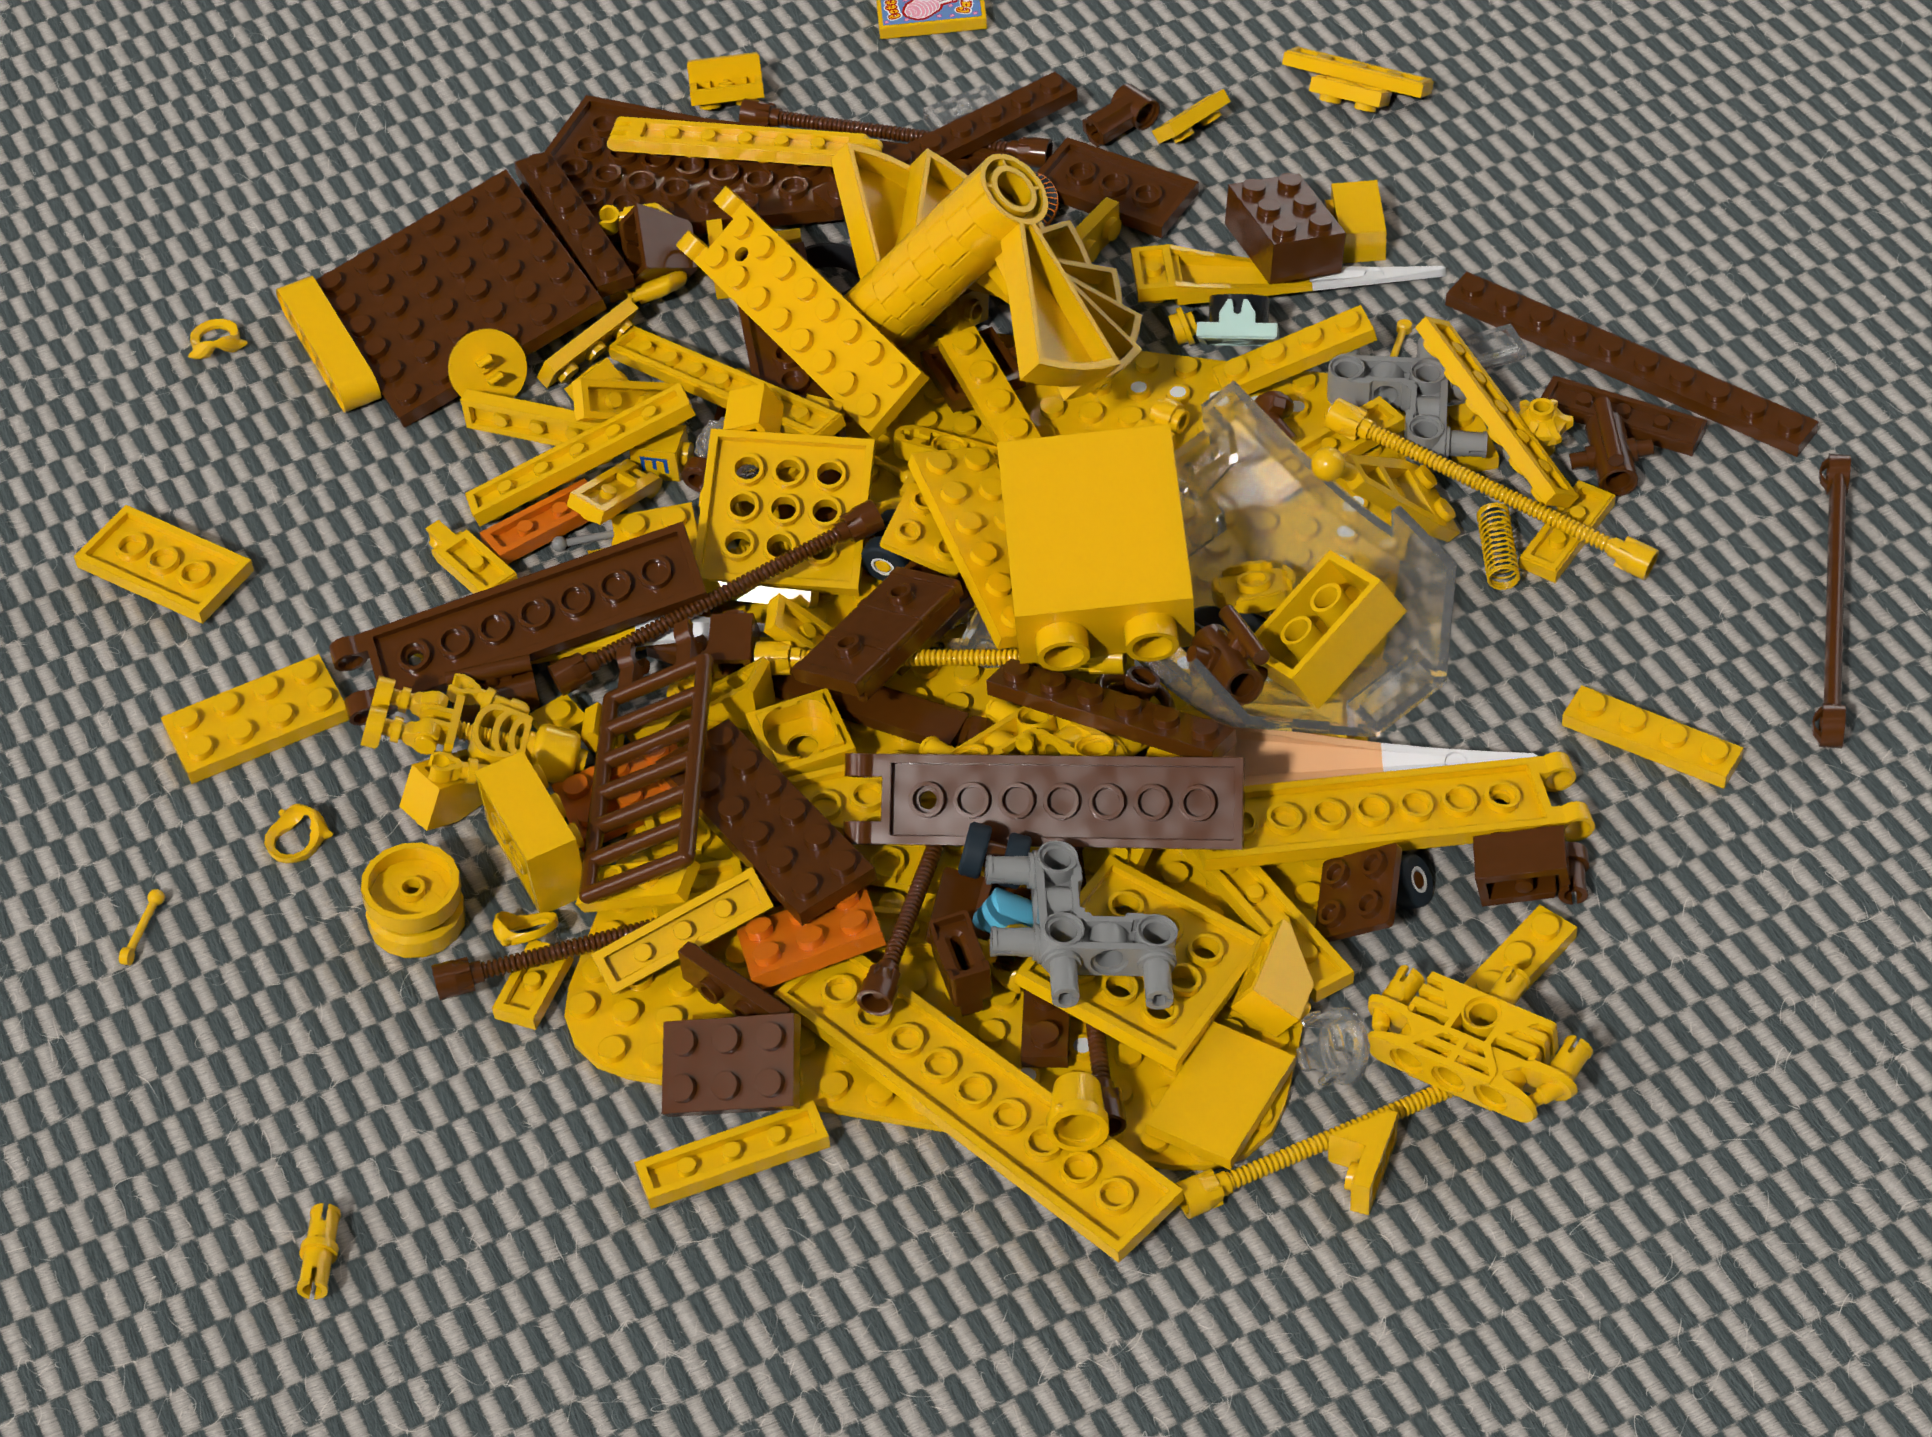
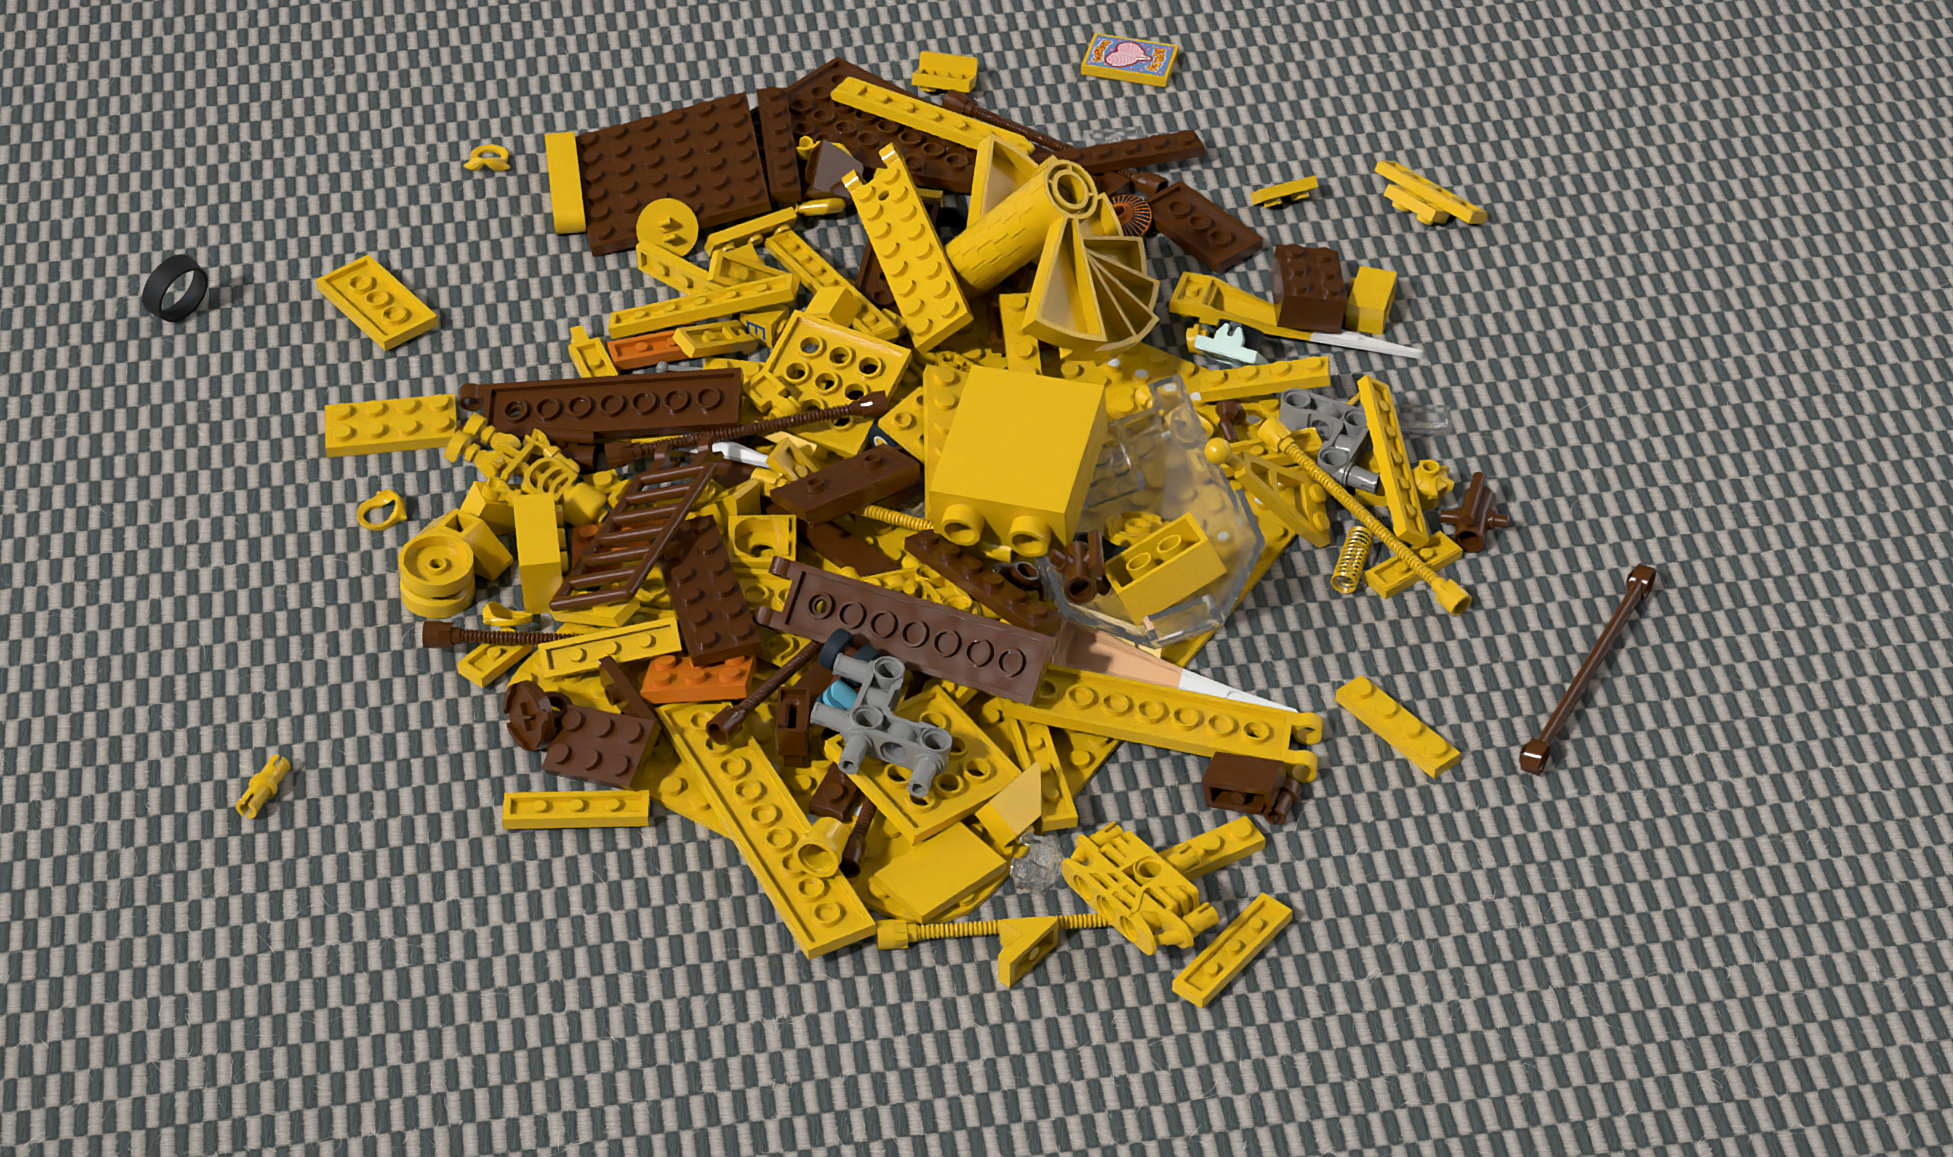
camera: 15 degrees right, 5 degrees down
(127, 954) = (228, 556): yellow hinge -> none
(432, 827) = (488, 552): none -> yellow slope
(624, 1048) = (531, 714): none -> reddish brown tile
(721, 541) = (767, 392): none -> yellow plate
(732, 641) = (740, 461): reddish brown brick -> none
(1100, 227) = (1168, 253): yellow plate -> none
(1127, 109) = (1237, 173): reddish brown piece -> none
(1363, 889) = (1121, 763): reddish brown plate -> none
(1611, 1082) = (1232, 950): none -> yellow plate
(1634, 364) = (1531, 461): reddish brown plate -> none
(1641, 419) = (1510, 499): reddish brown tile -> none

